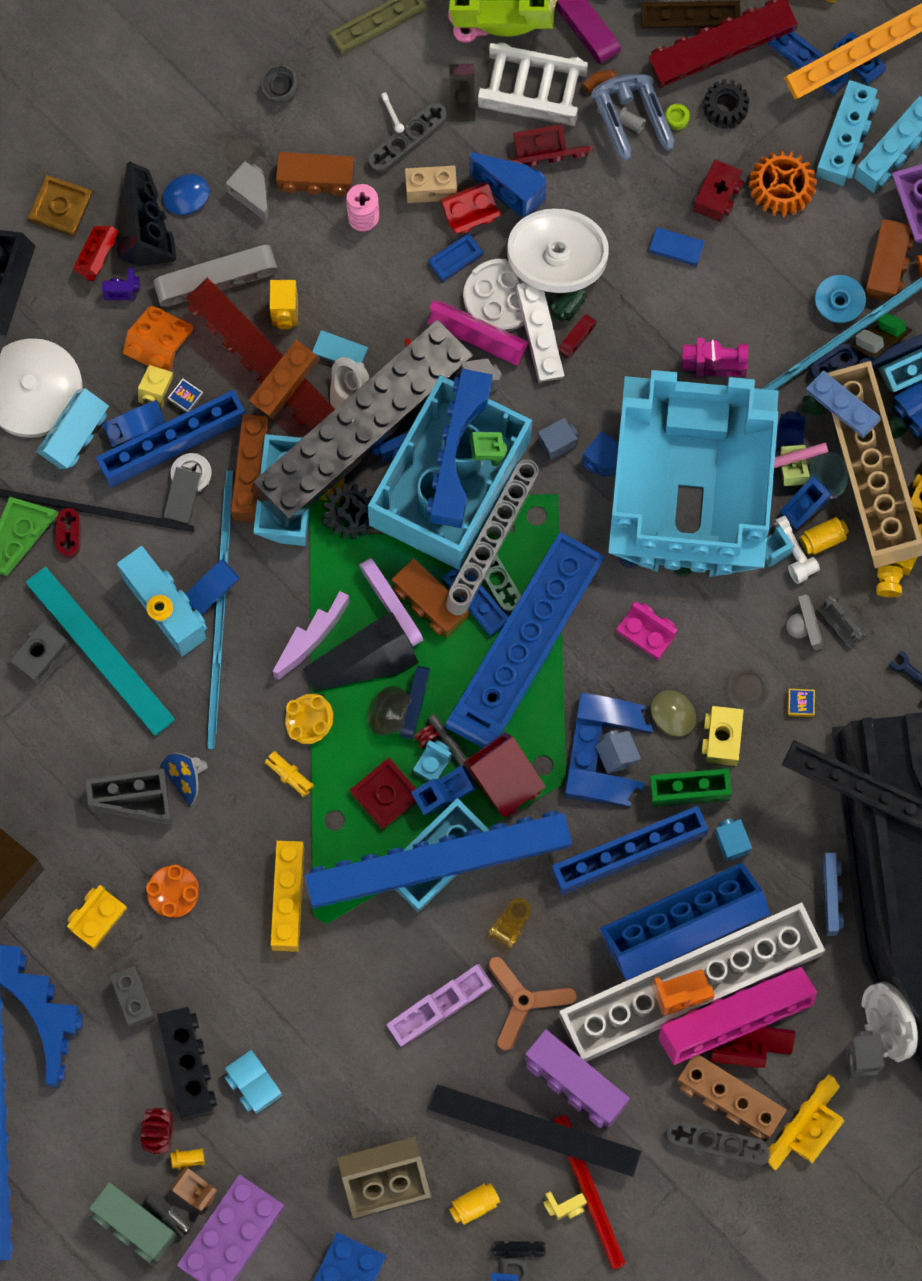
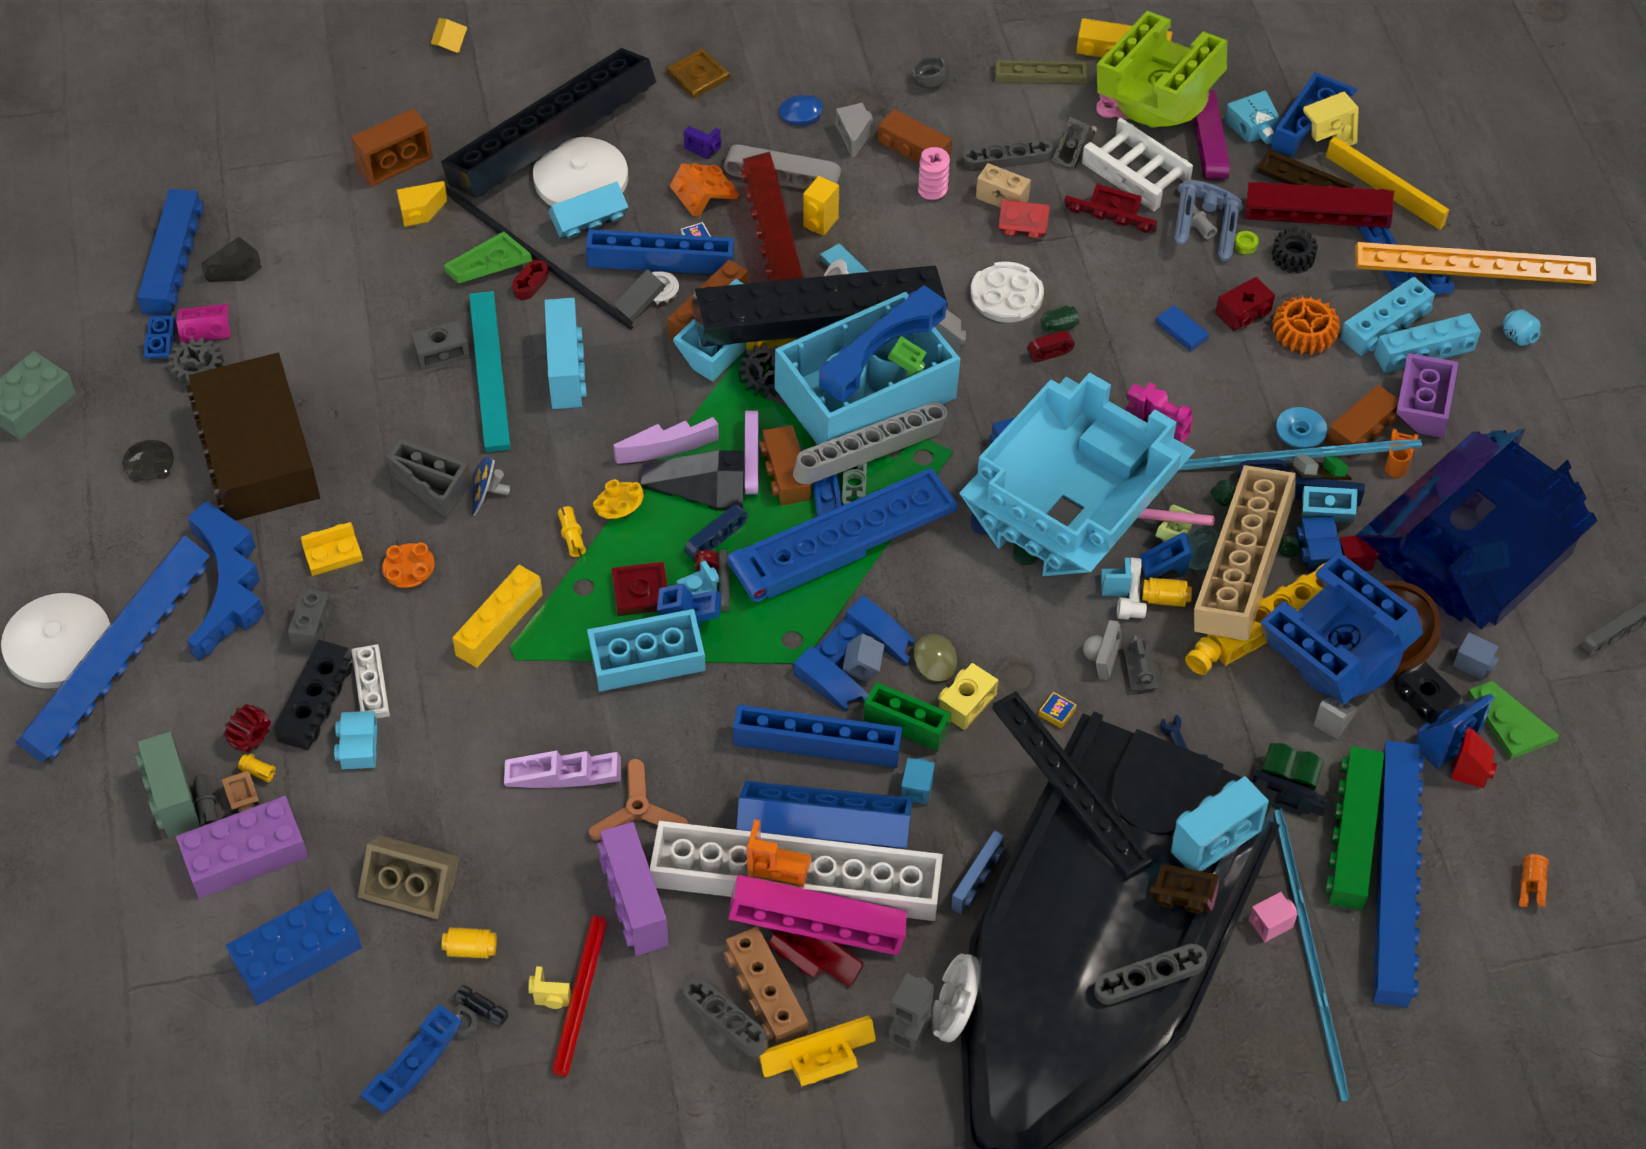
camera: 30 degrees right, 20 degrees down
(94, 251) = (699, 110): red bracket -> none
(134, 423) = (641, 221): blue brick -> none
(141, 225) = (752, 109): black wedge -> none
(154, 385) = (674, 214): light yellow bracket -> none
(163, 614) = (552, 343): yellow plate -> none
(212, 586) = (613, 365): blue slope -> none
(220, 611) = (595, 405): medium azure piece -> none
(232, 1032) = (370, 680): none -> white tile
(284, 379) = (778, 245): dark orange brick -> none
(388, 711) = (686, 524): clear smoke dish -> none
(398, 126) = (1005, 140): white hinge -> none
(437, 860) = (640, 642): blue brick -> none
(455, 257) = (988, 249): blue tile -> none
(478, 332) = (969, 305): dark pink fence -> none
(504, 775) = (749, 619): dark red brick -> none
(510, 182) = (1069, 213): blue slope -> none
(510, 924) = (671, 739): clear yellow piece -> none
(535, 1130) = (569, 914): black tile -> none
(539, 333) = (1020, 328): white plate -> none
(557, 250) = (1075, 277): white dish -> none
(558, 438) = (980, 408): sand blue brick -> none
(647, 630) = (958, 584): dark pink bracket -> none
(790, 429) = (1194, 498): clear blue bracket -> none
(843, 404) = (1248, 490): medium blue plate -> none

